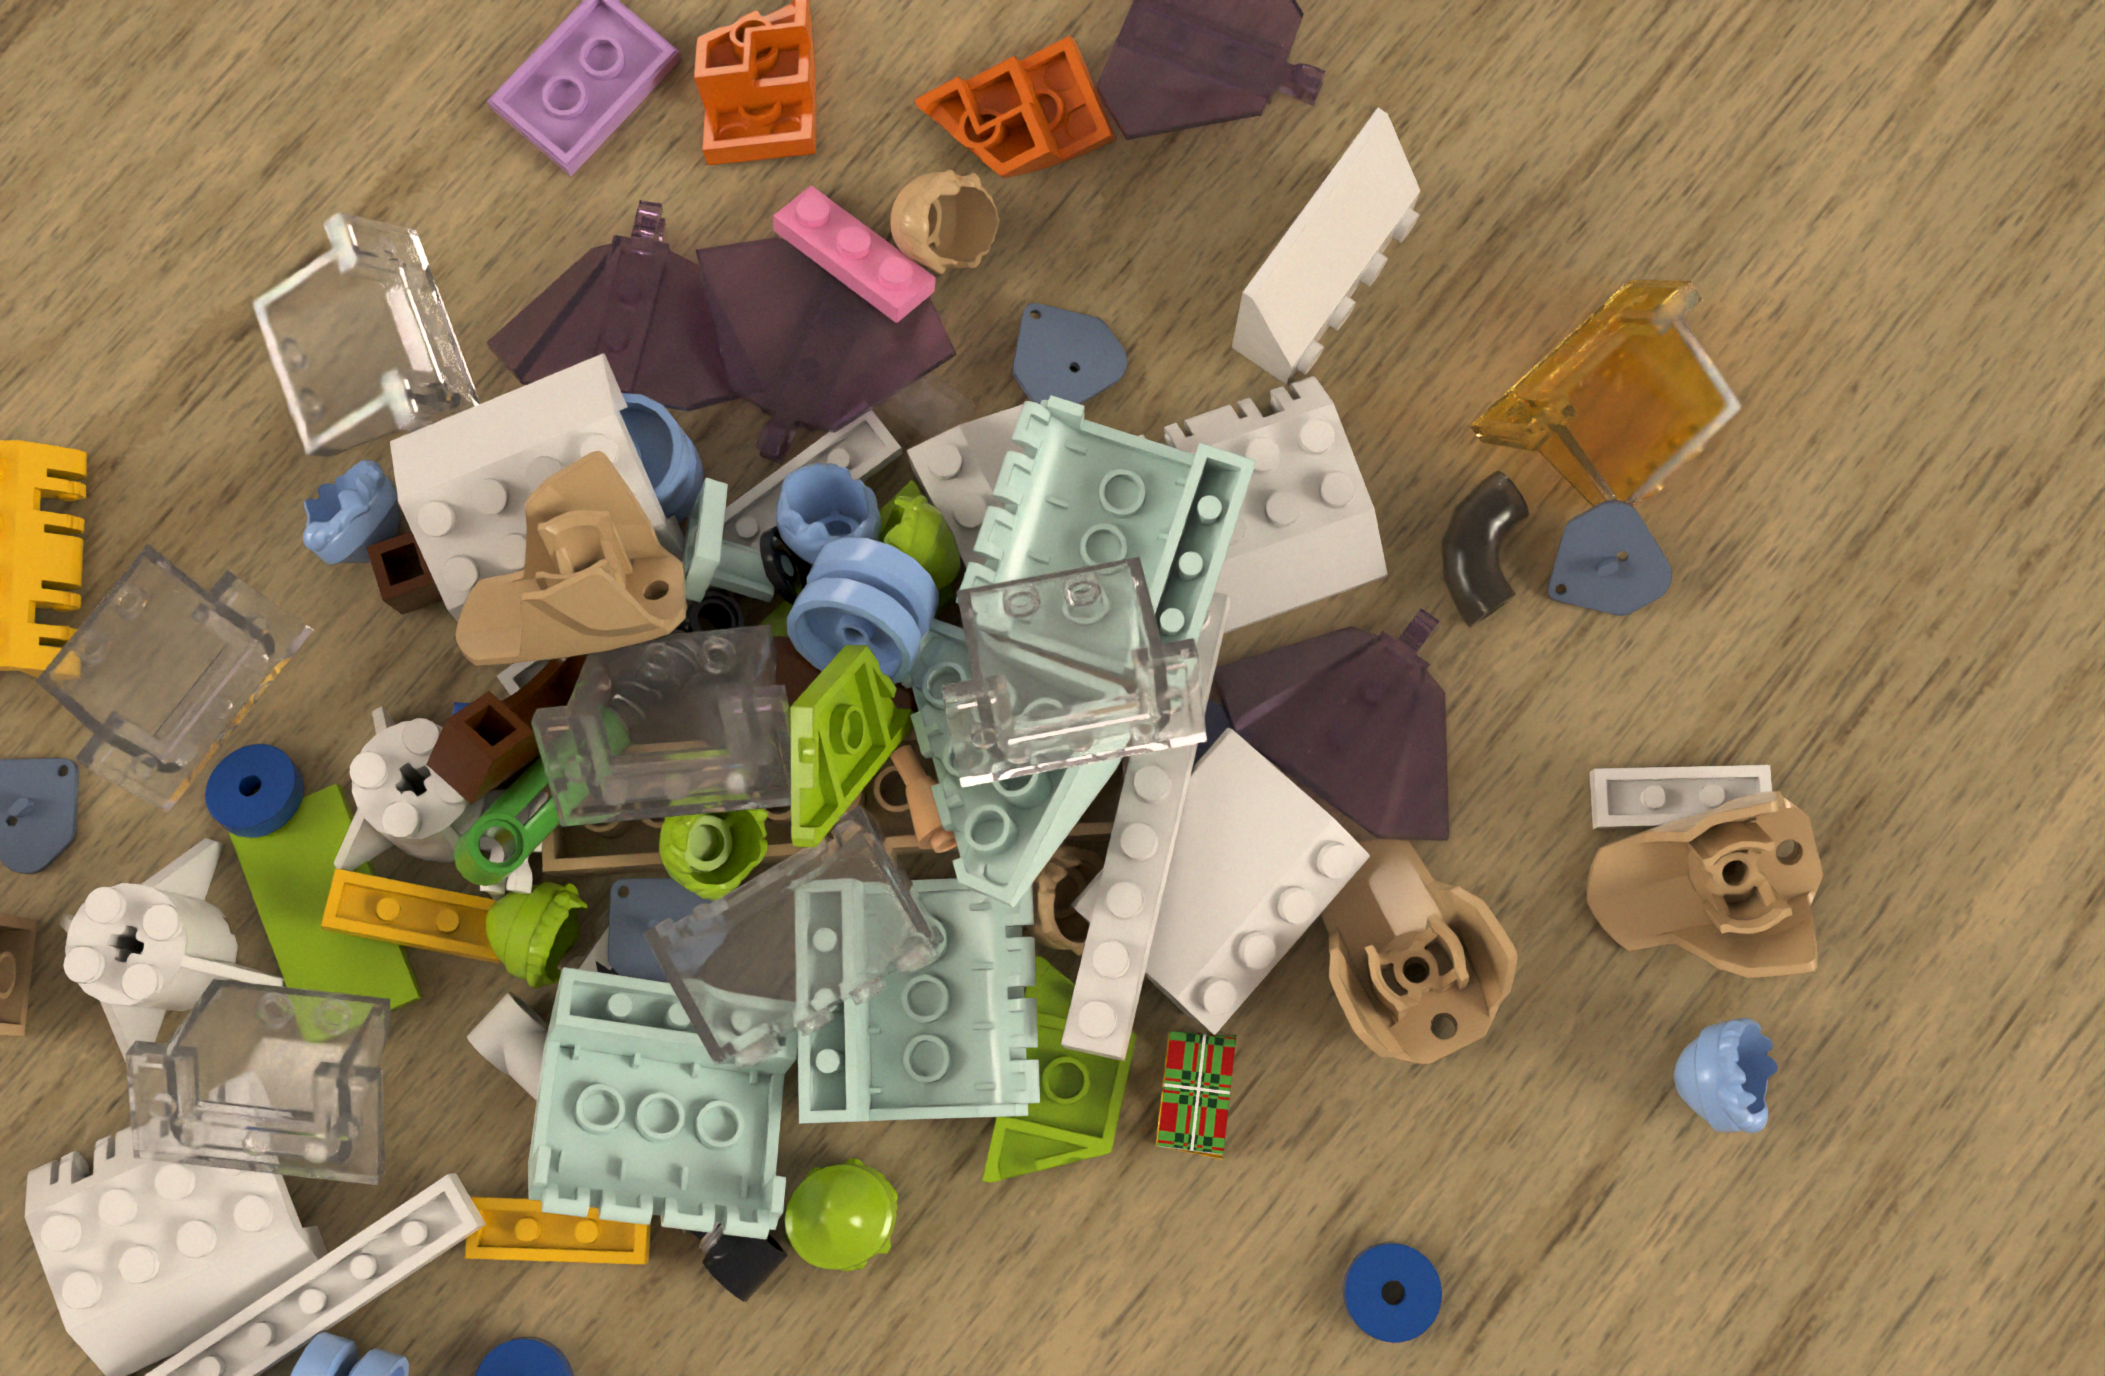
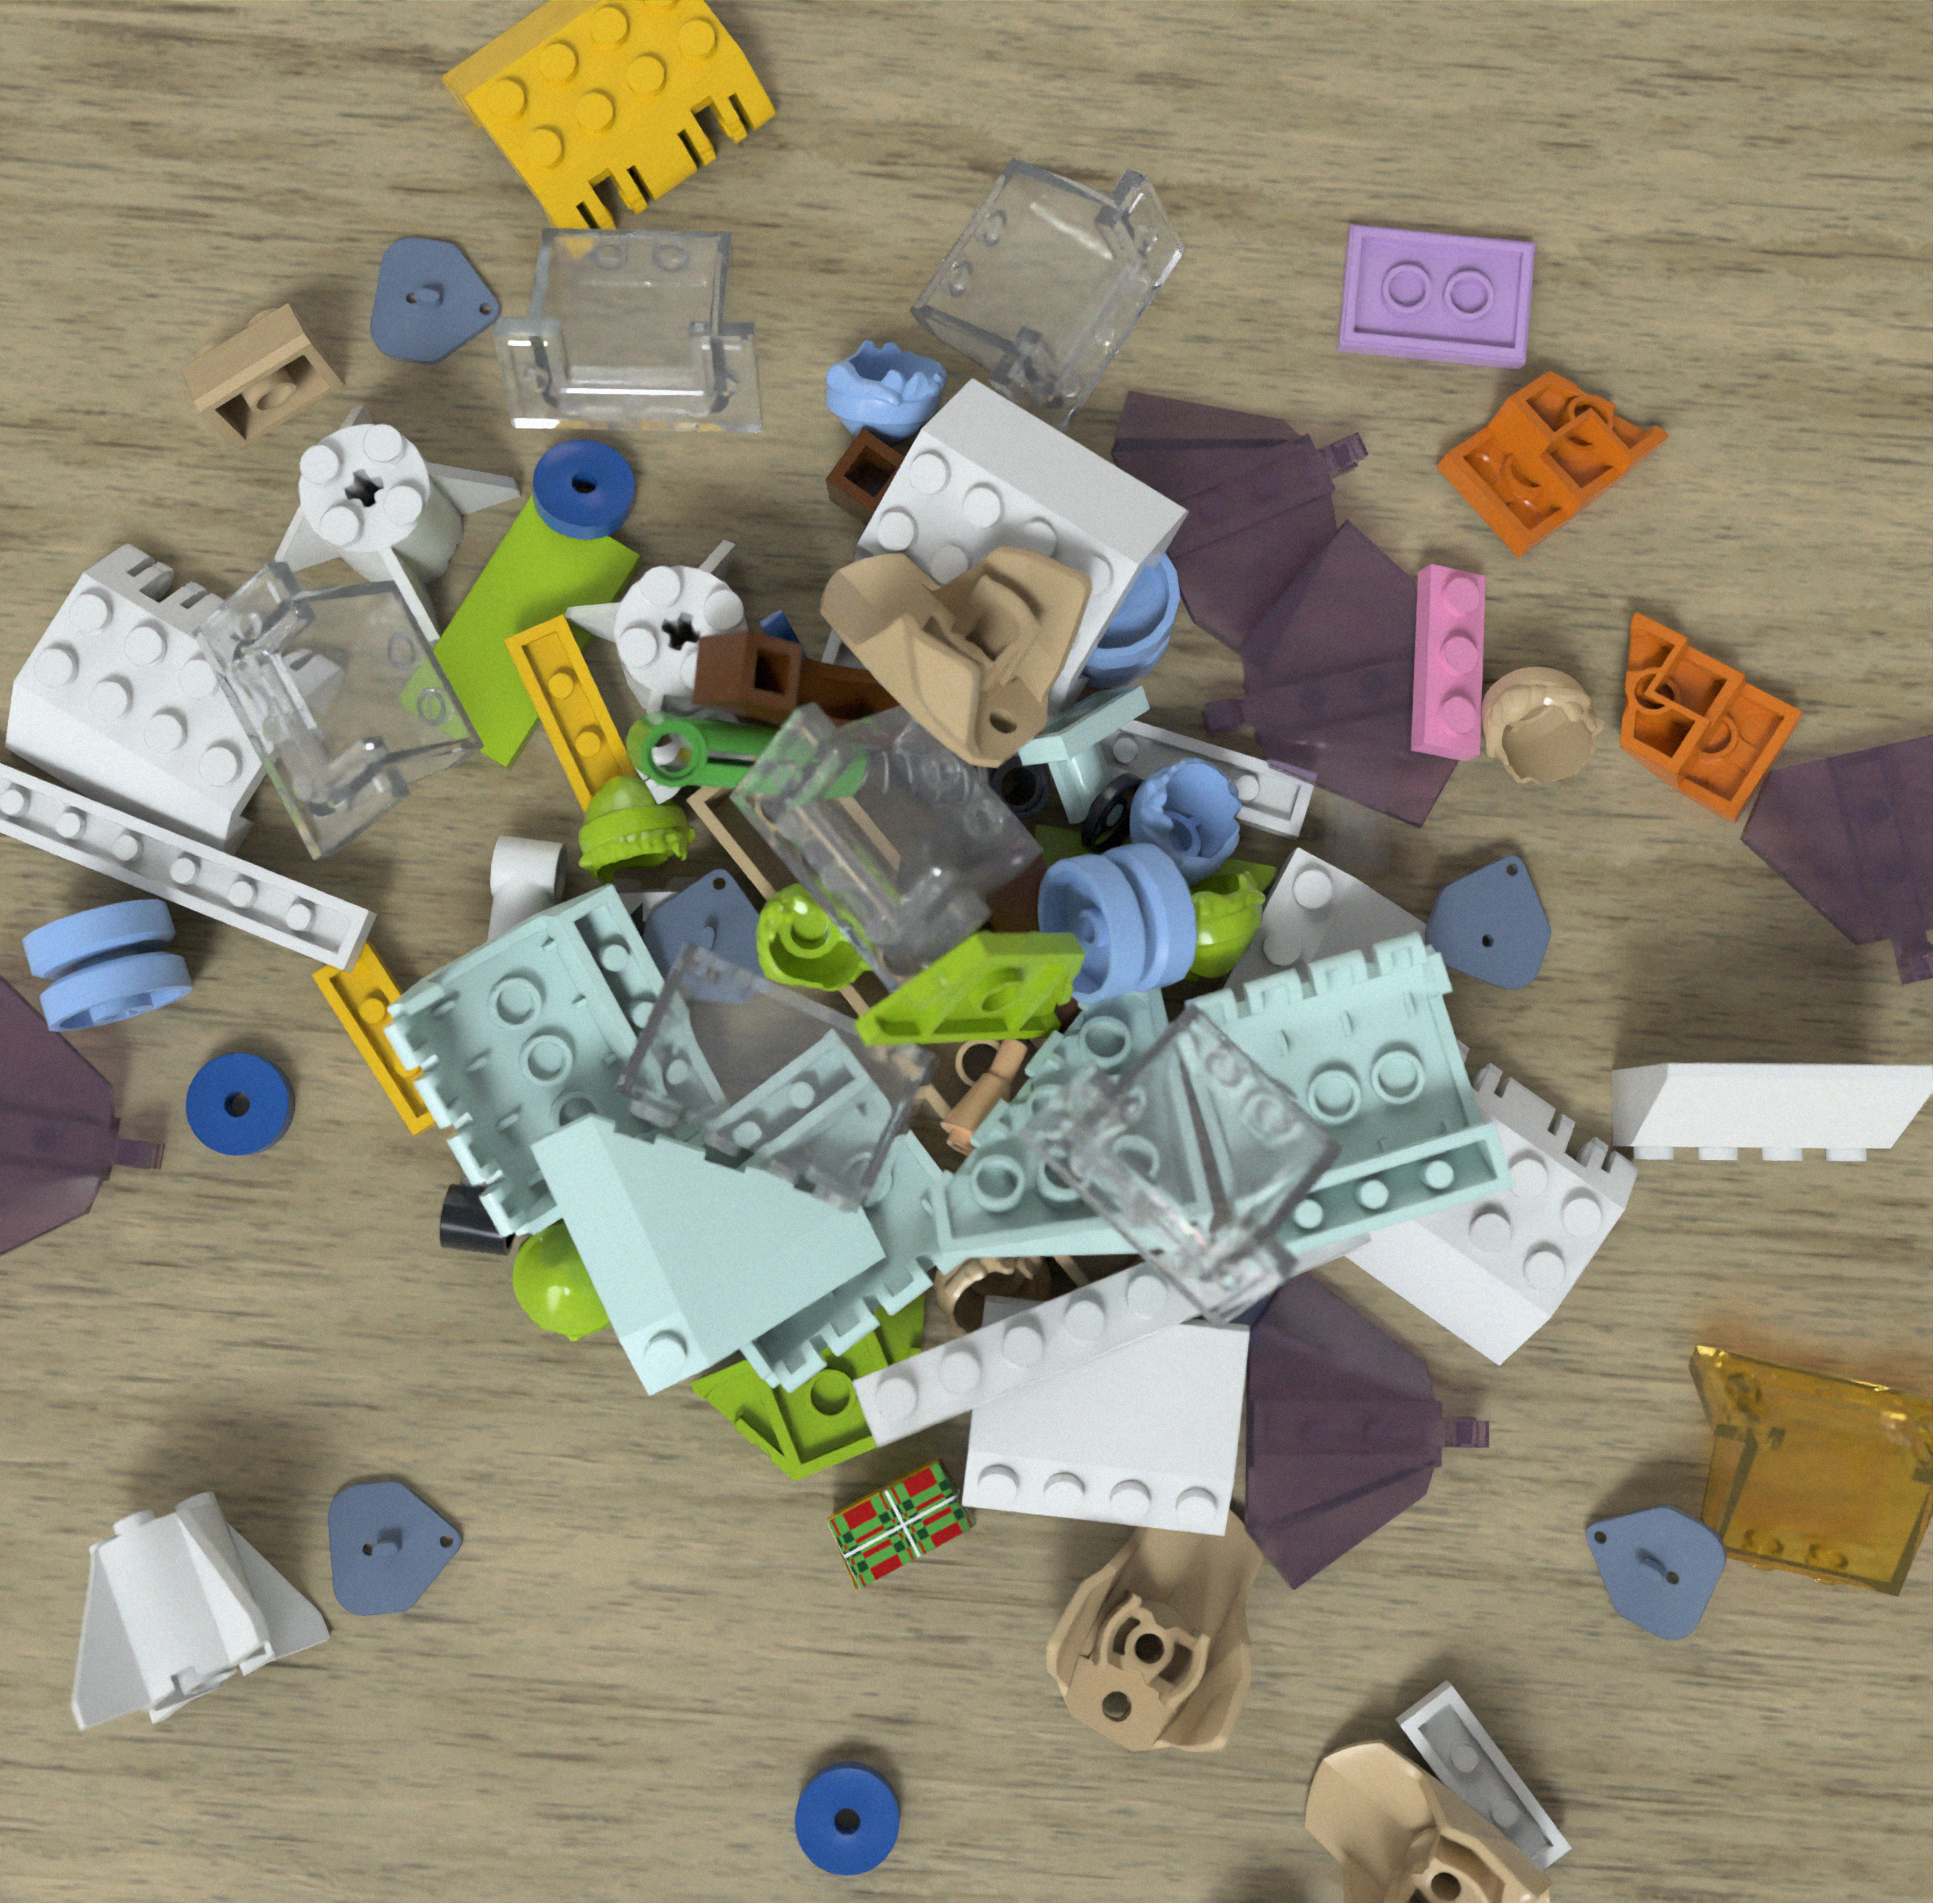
camera: 50 degrees right, 5 degrees up
(880, 1100) = (693, 1249): none -> light aqua slope
(1474, 544) = (1585, 1428): clear smoke cylinder -> none

